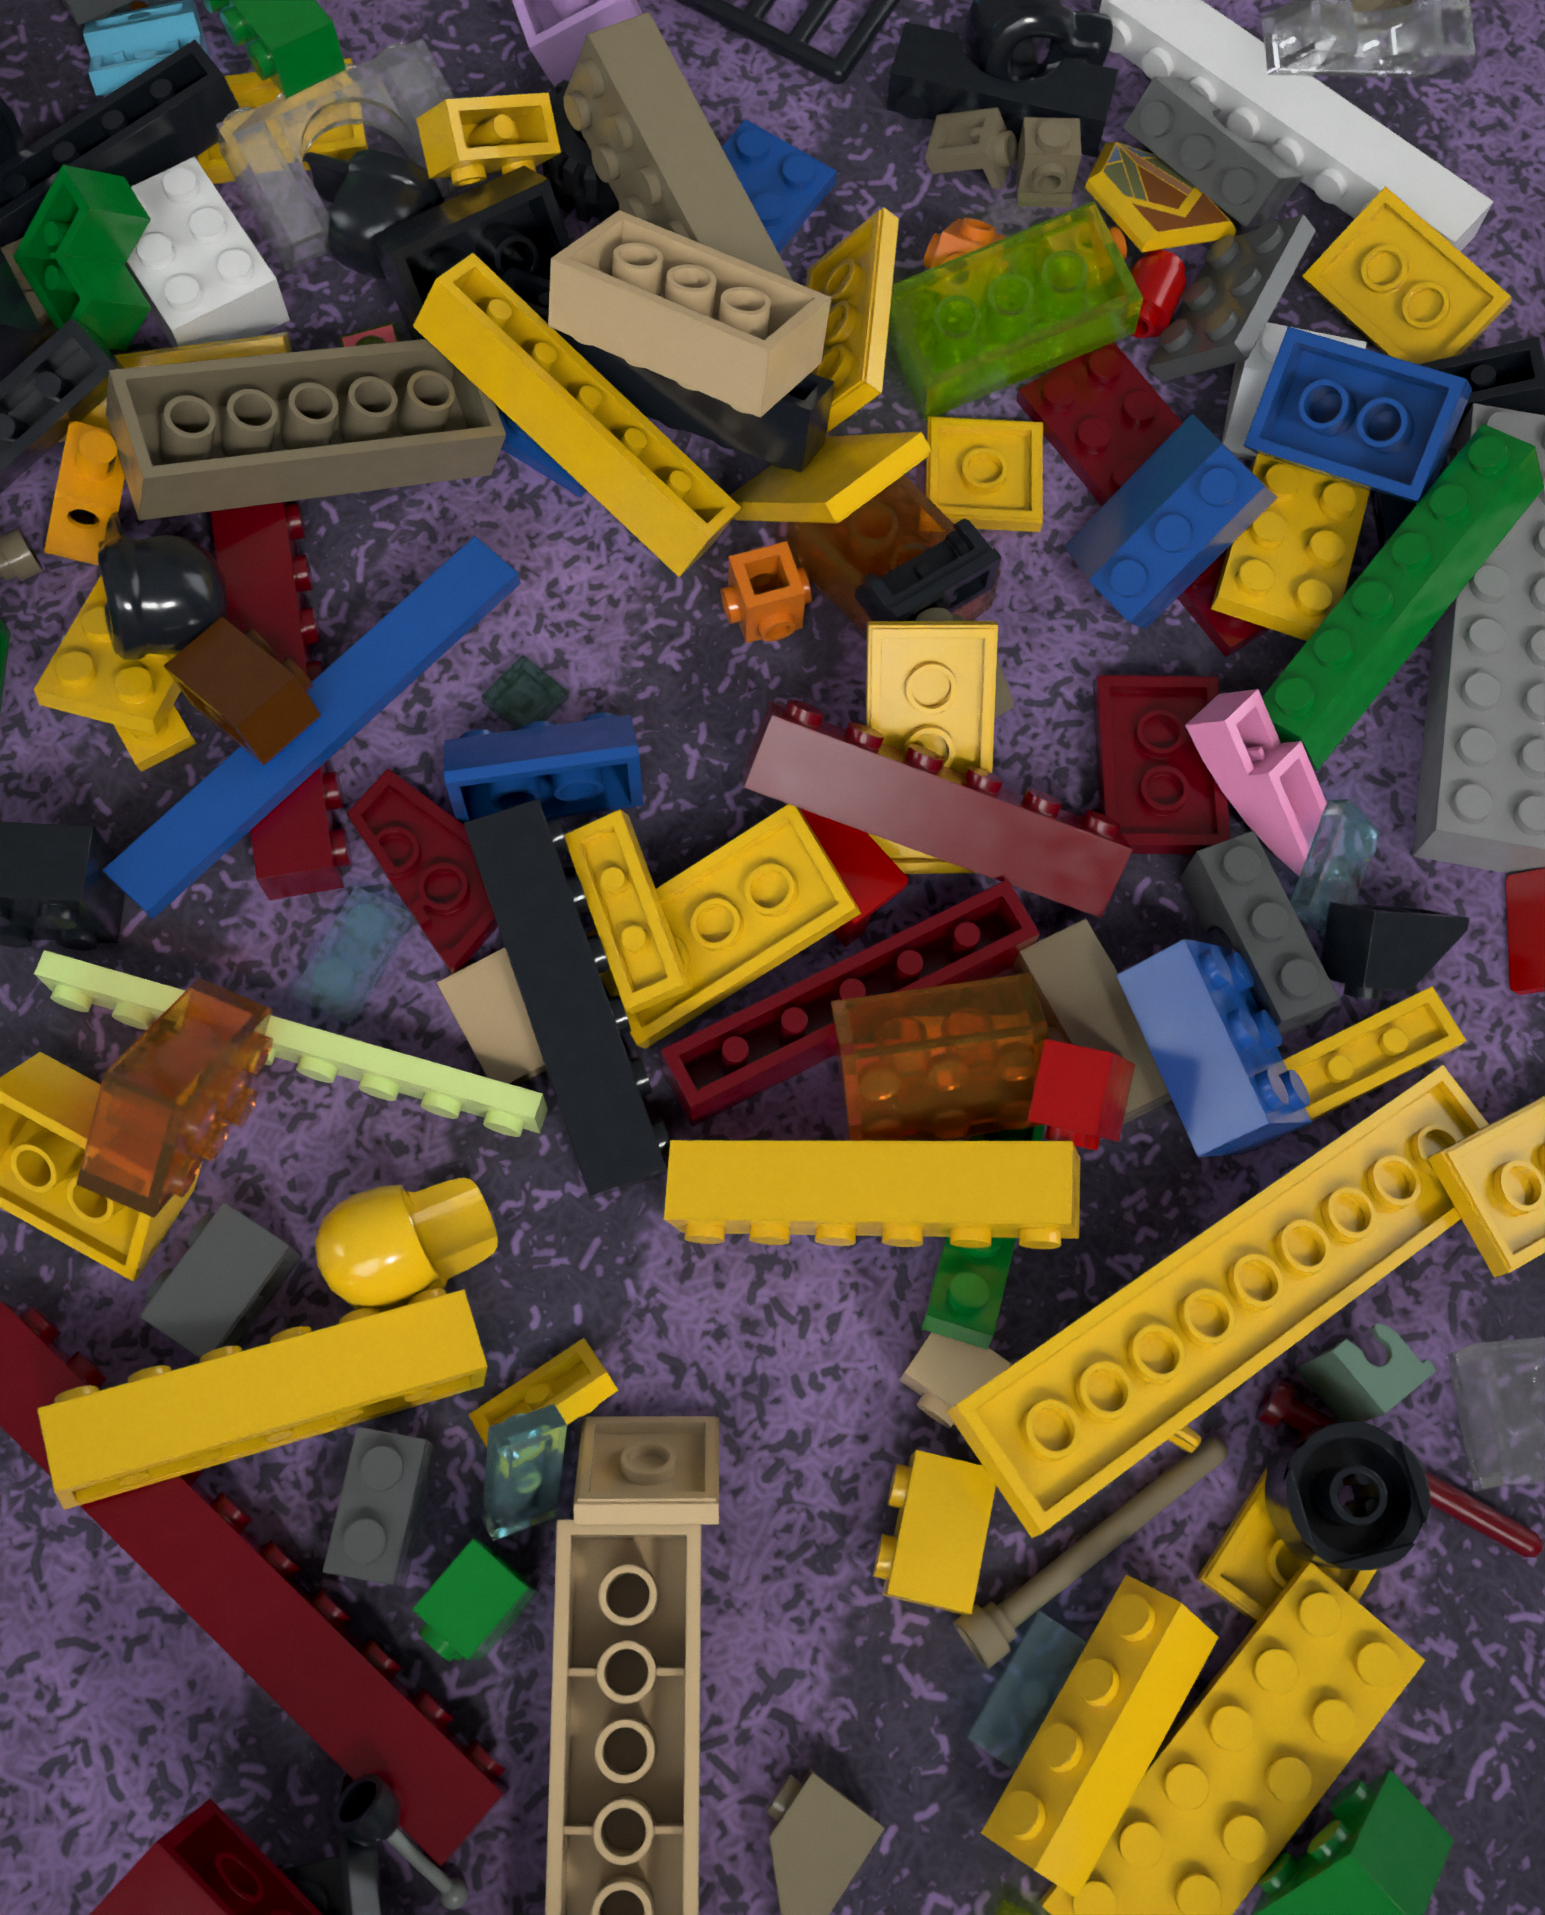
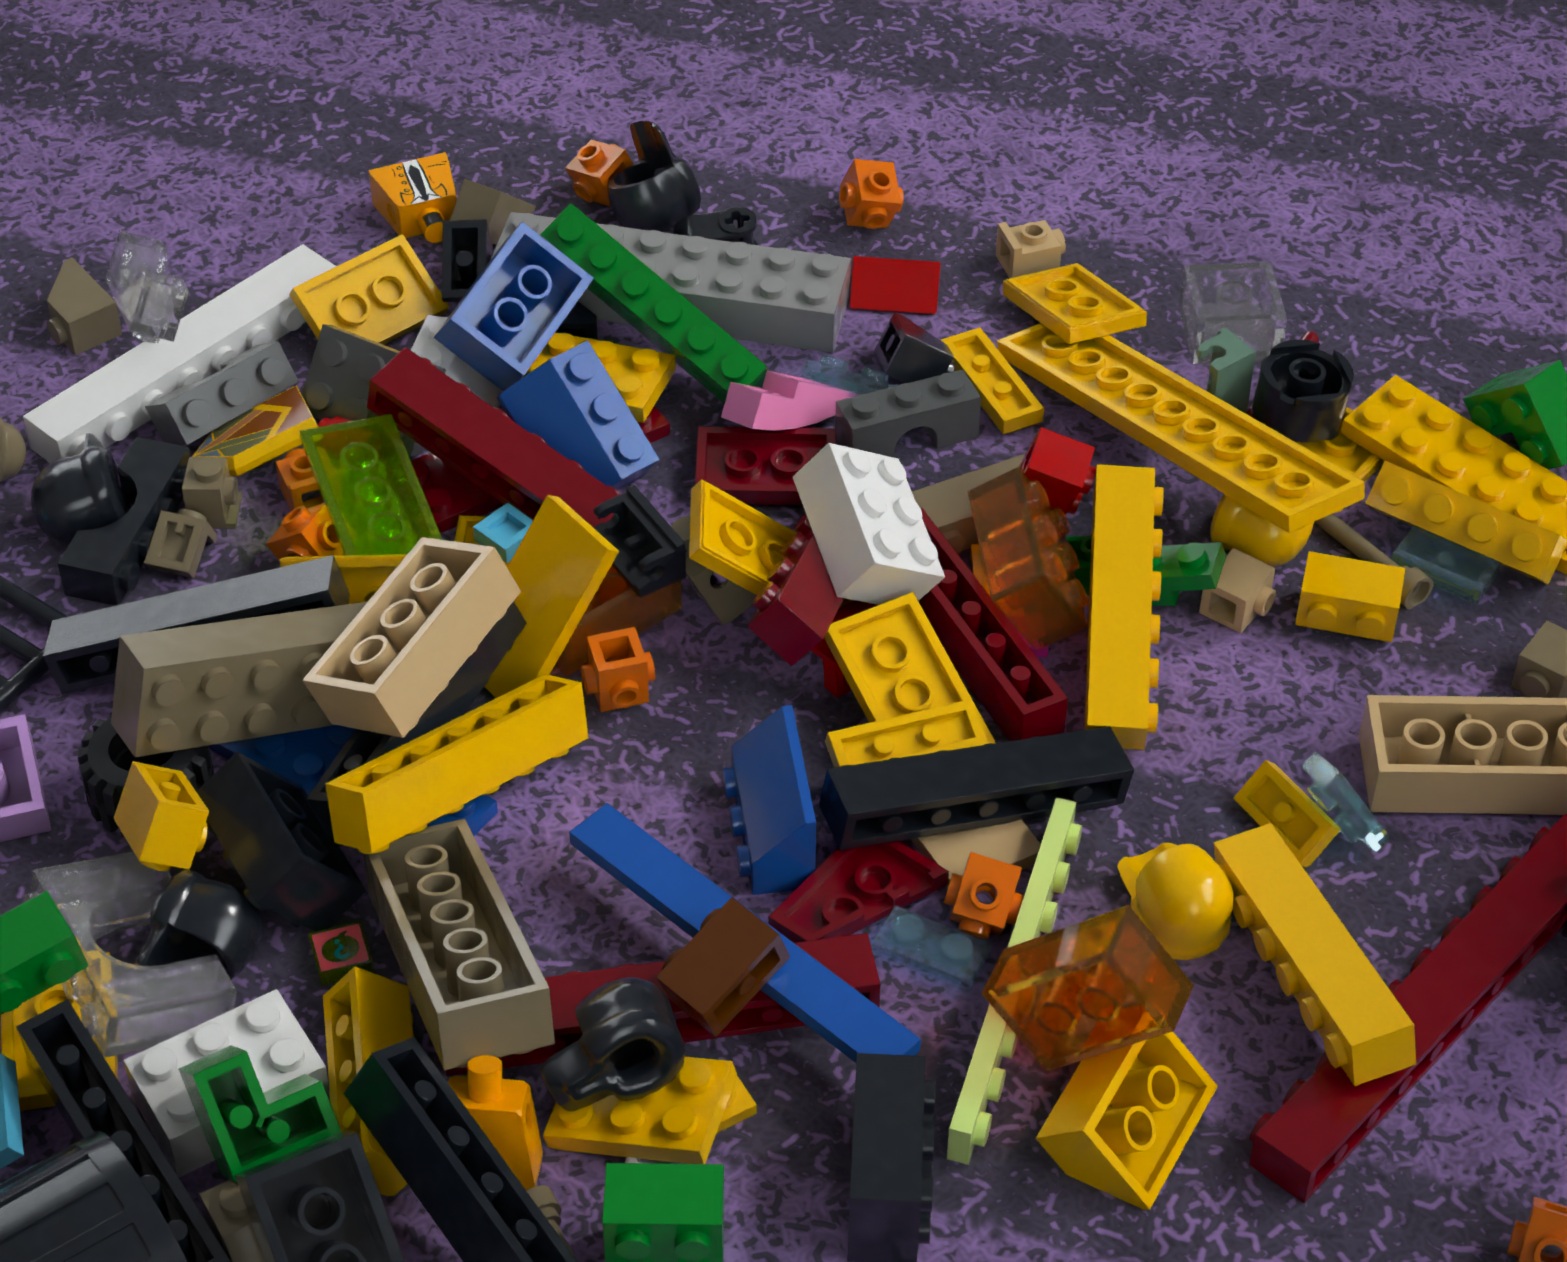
camera: 85 degrees left, 25 degrees down
(219, 1282) = (1228, 1012): dark grey brick -> none
(380, 1507) = (1382, 899): dark grey brick -> none
(387, 1000) = (992, 879): none -> orange brick
(473, 1604) = (1440, 828): green brick -> none
(524, 695) = (696, 840): tile -> none
(648, 1471) = (1338, 729): tan tile -> none
(801, 156) = (86, 645): none -> brick
(953, 843) = (867, 525): none -> white brick
(992, 463) = (503, 530): none -> medium azure plate
(1105, 424) = (481, 439): none -> dark red brick
(1215, 1048) = (998, 428): blue brick -> none

